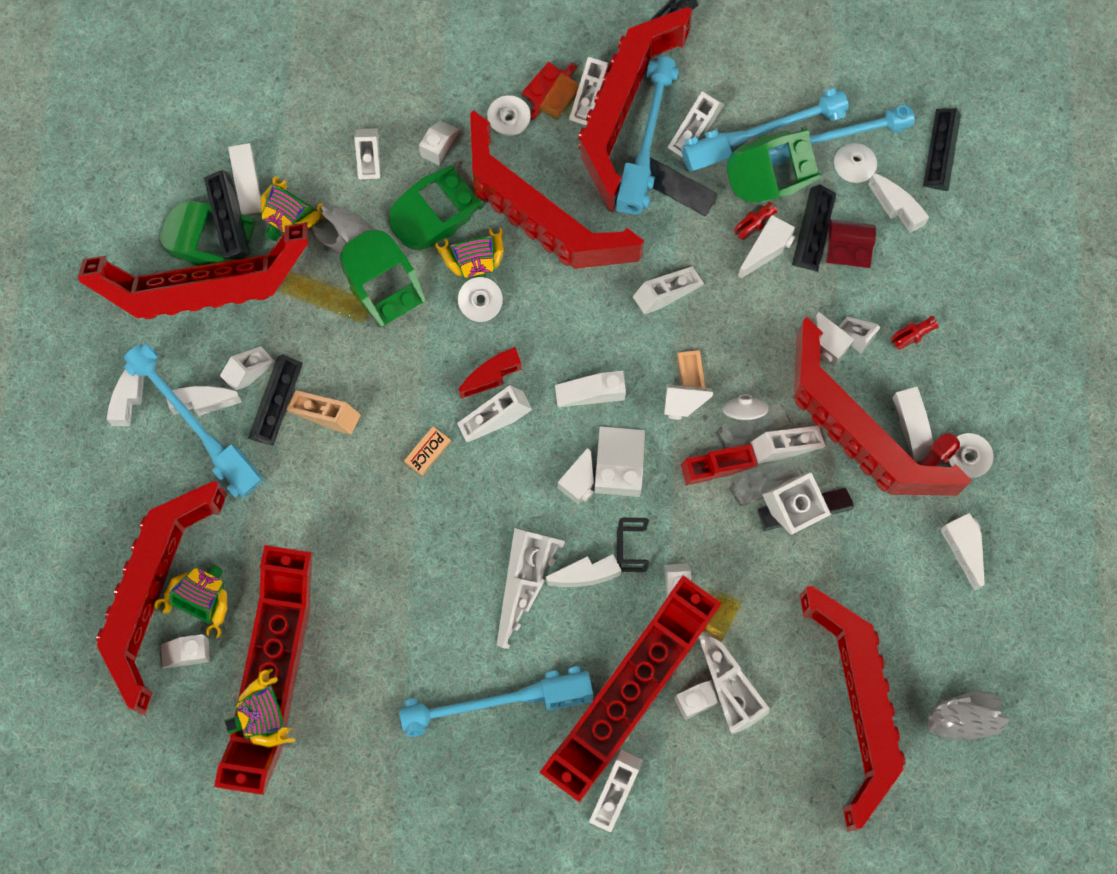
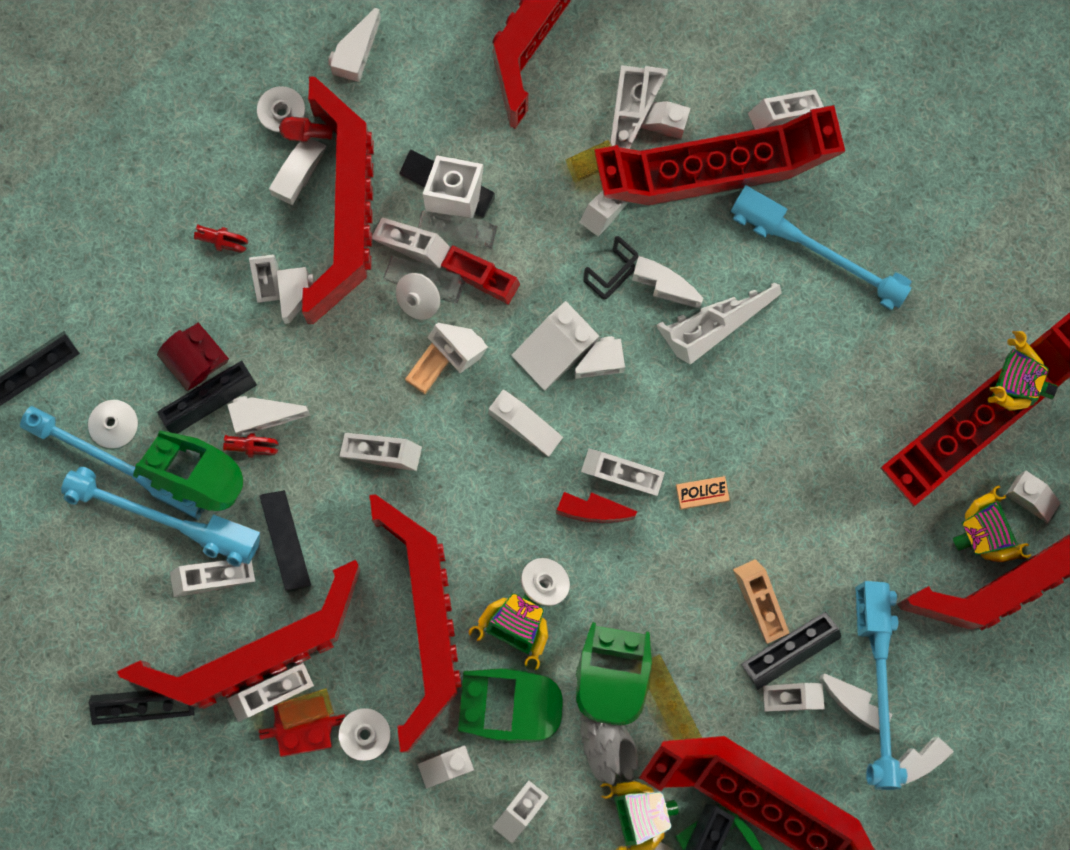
camera: 140 degrees left, 5 degrees up
(637, 176) = (314, 566): medium azure bar -> none
(898, 203) = (118, 352): white slope -> none

